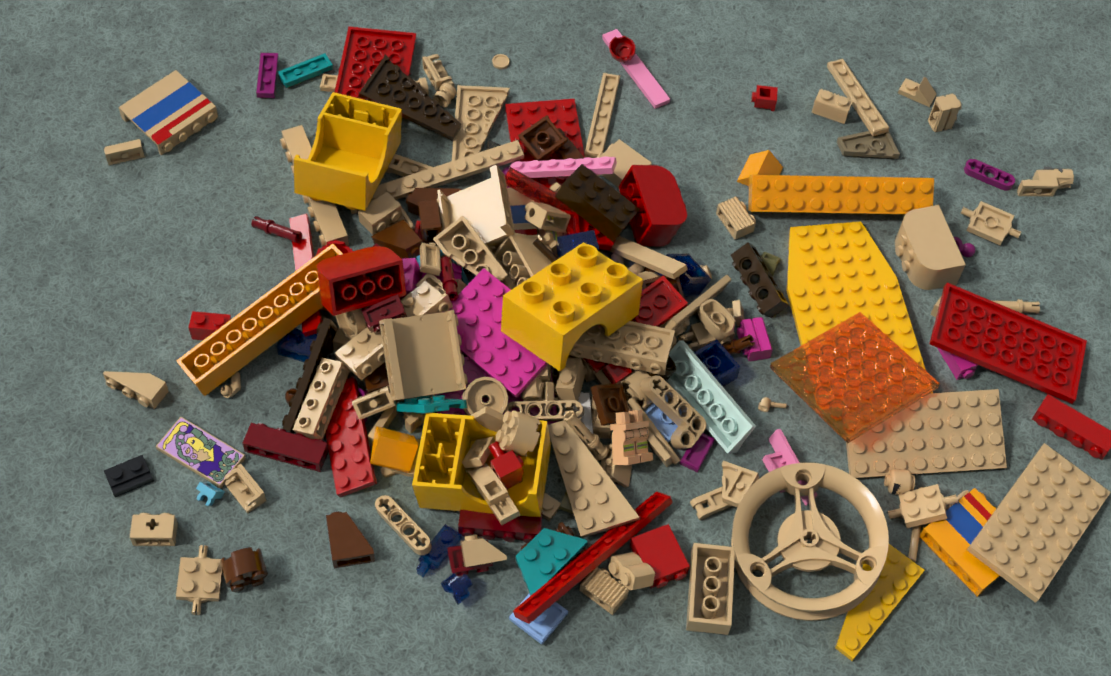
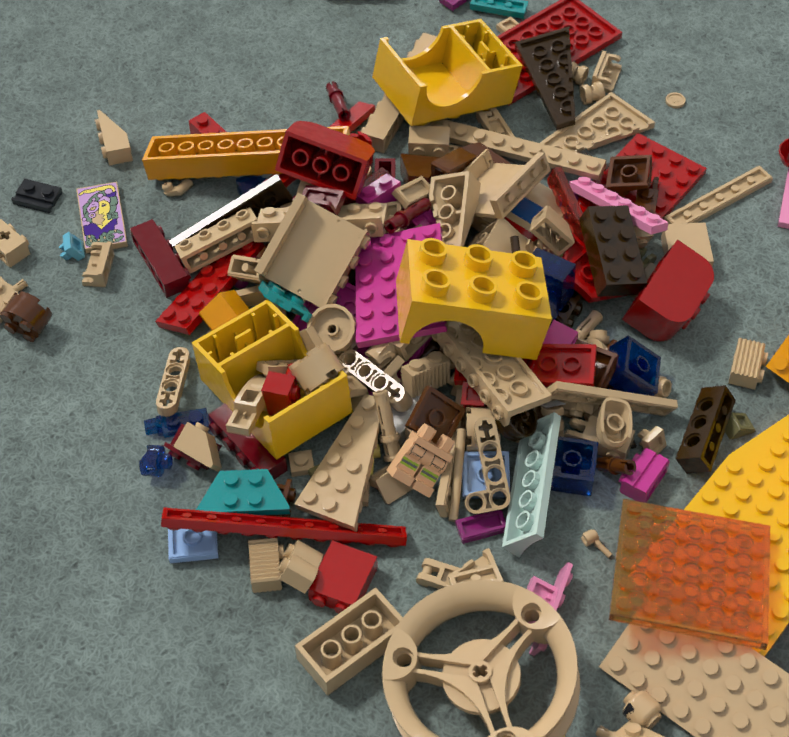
camera: 50 degrees right, 5 degrees down
(347, 542) = (119, 359): reddish brown slope -> none
(648, 258) = (610, 328): tan tile -> none

